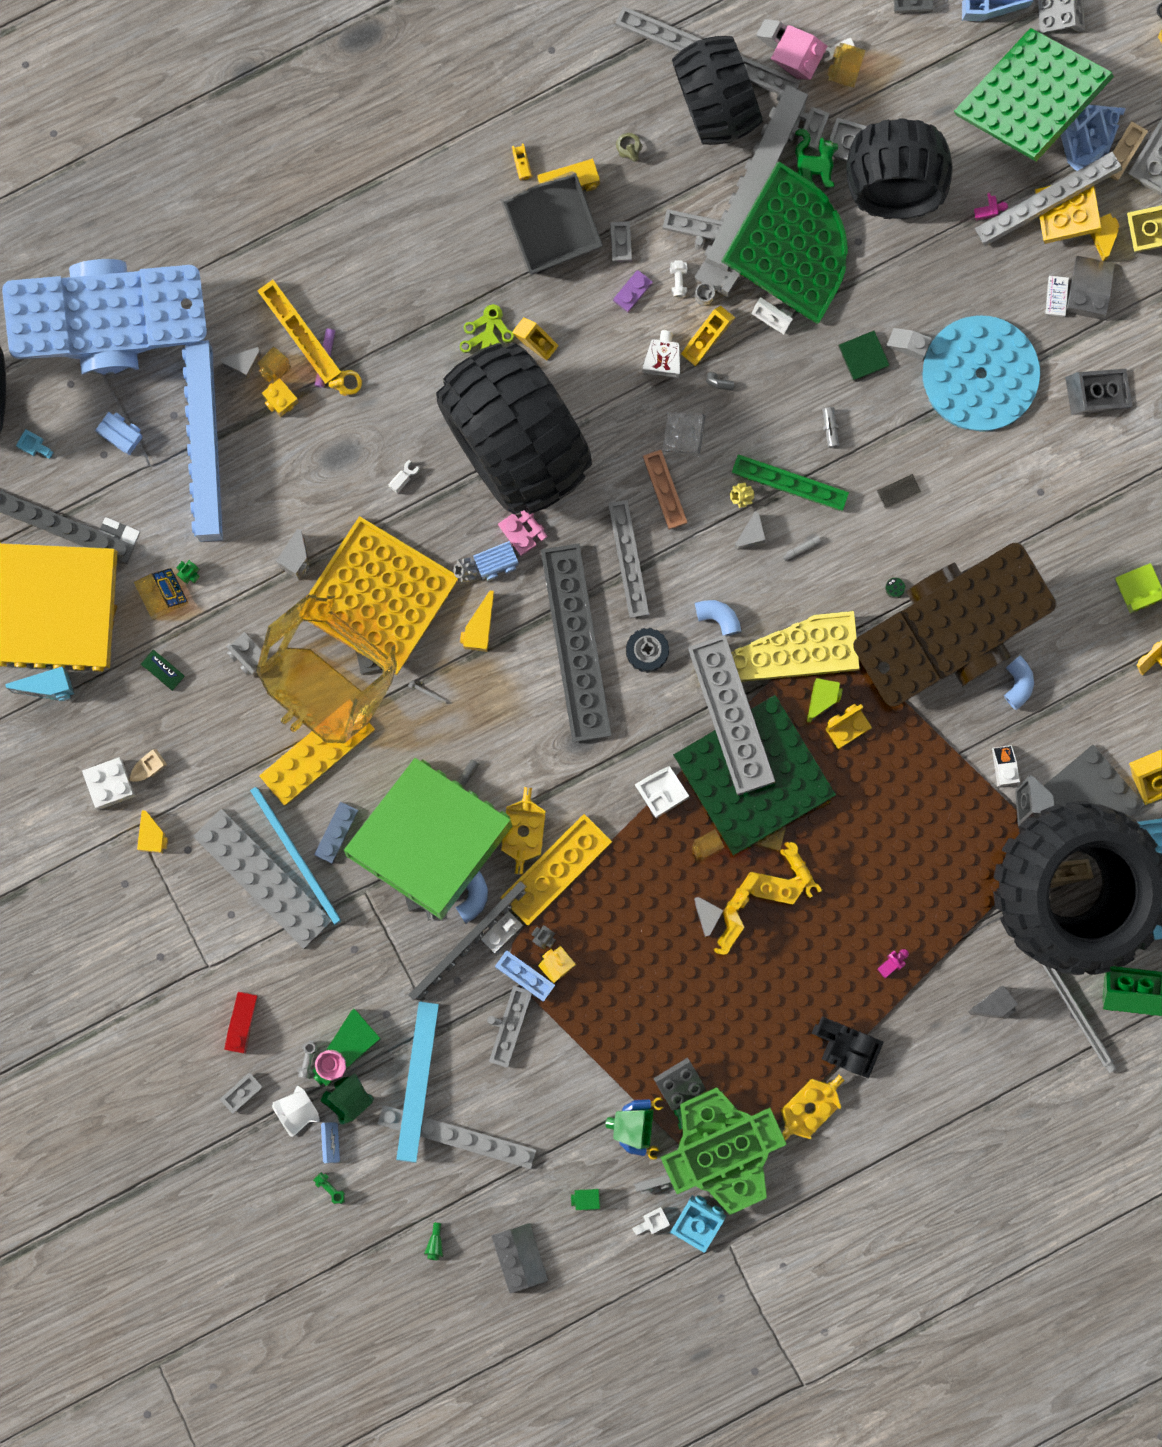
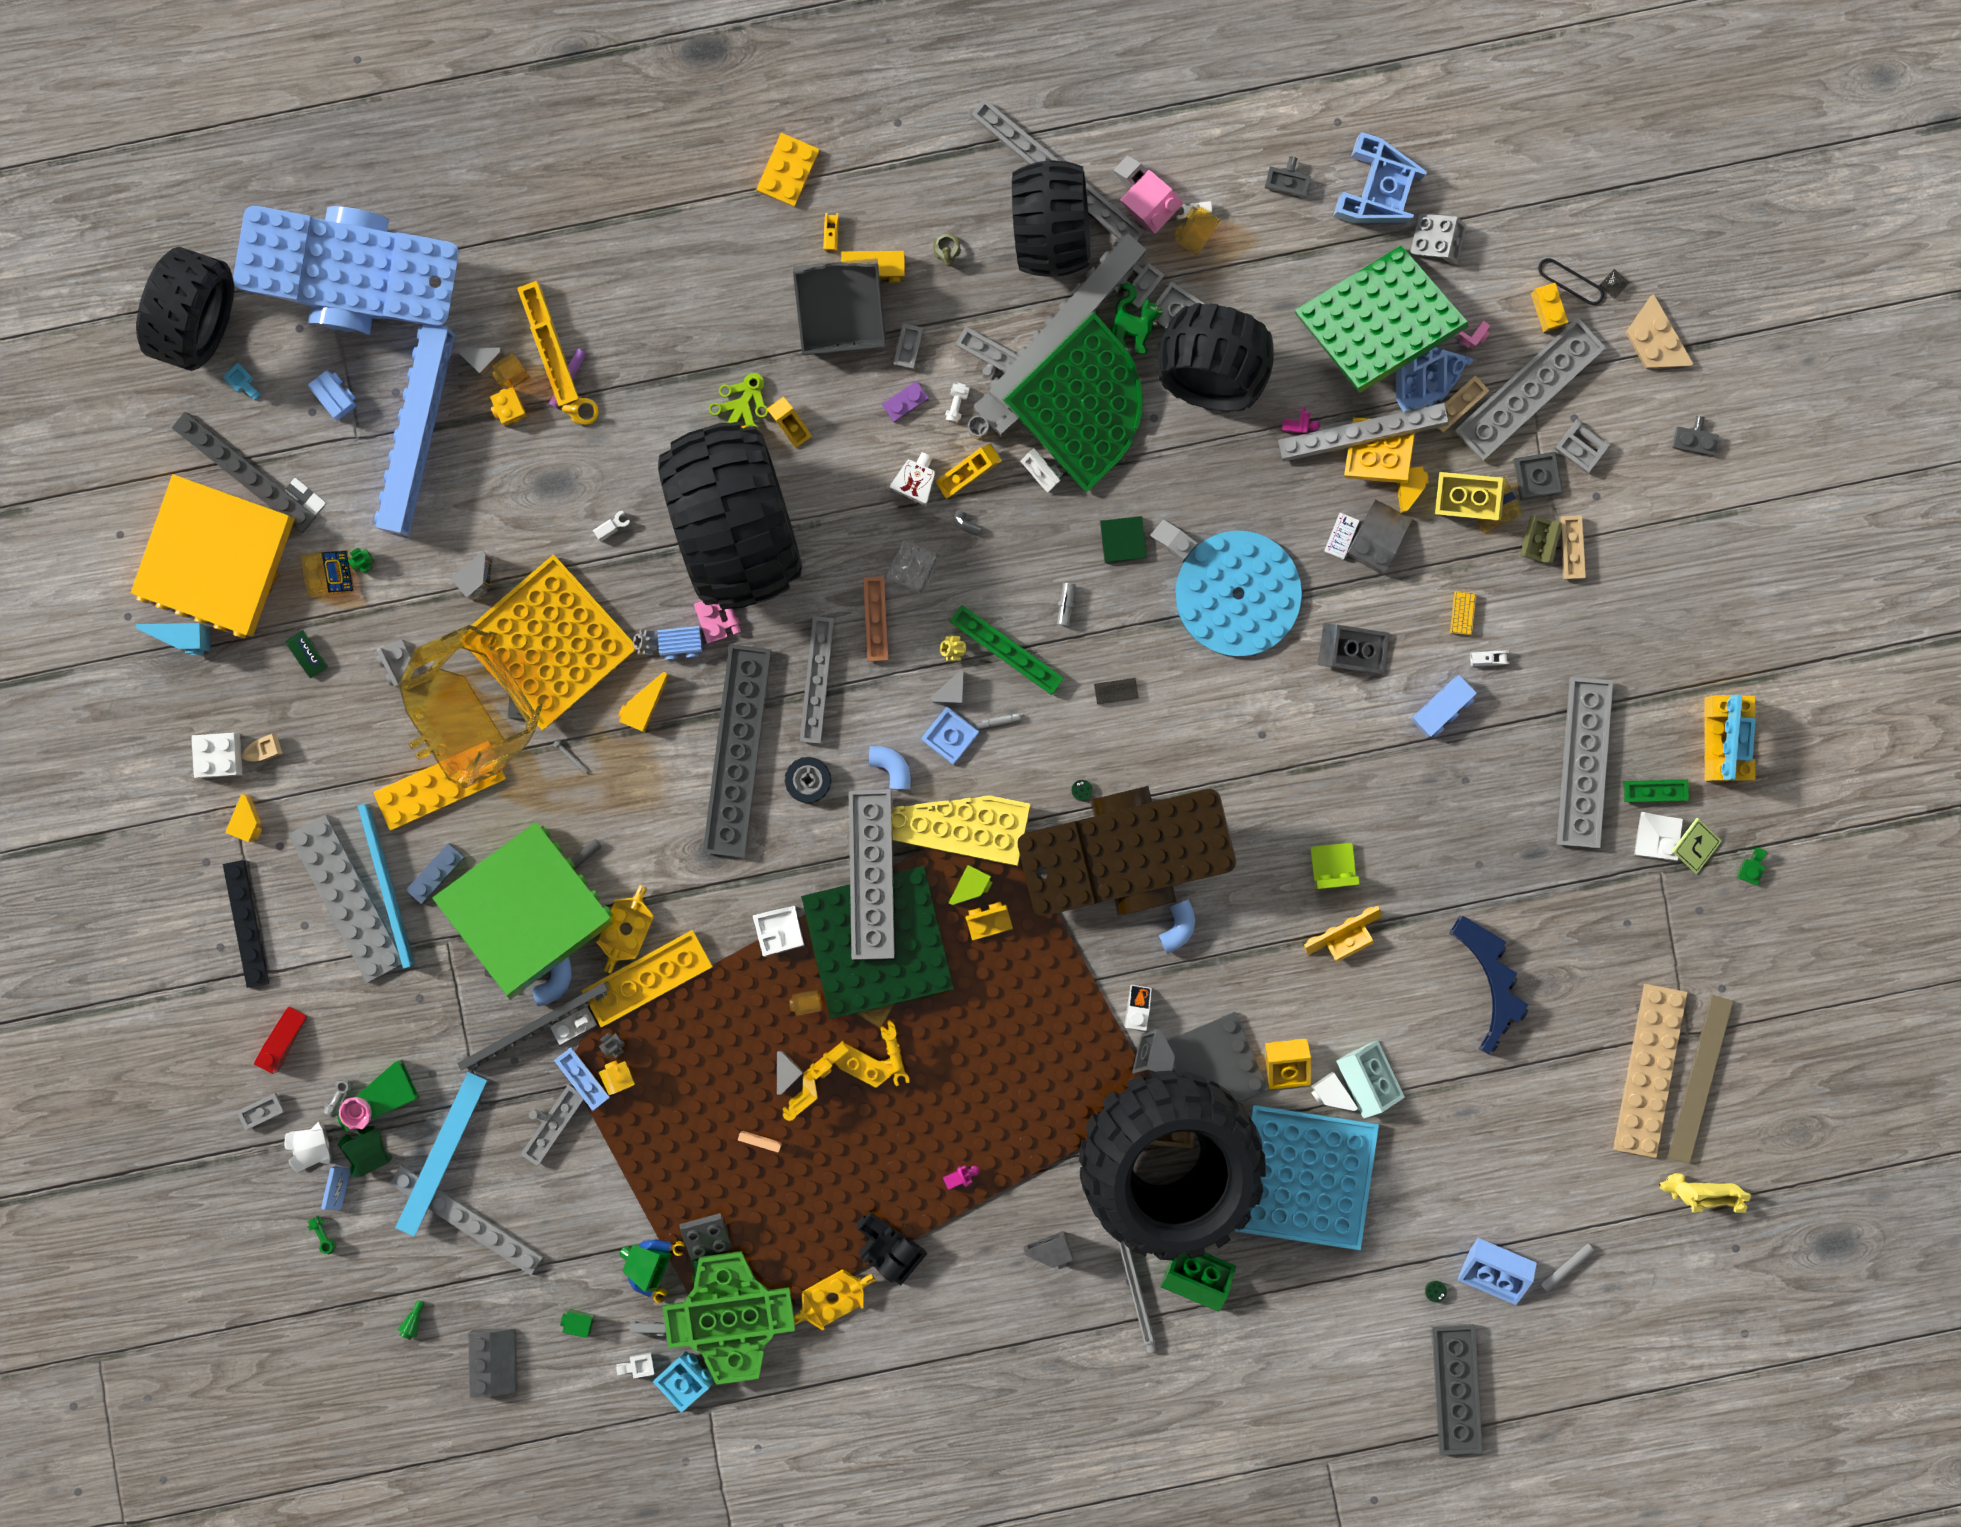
camera: 15 degrees right, 5 degrees up
(177, 928) = (245, 923): none -> black plate
(466, 119) = (787, 170): none -> yellow plate
(702, 984) = (759, 1141): none -> light nougat tile
(762, 574) = (950, 735): none -> light blue tile
(1124, 85) = (1479, 335): none -> bright pink bracket

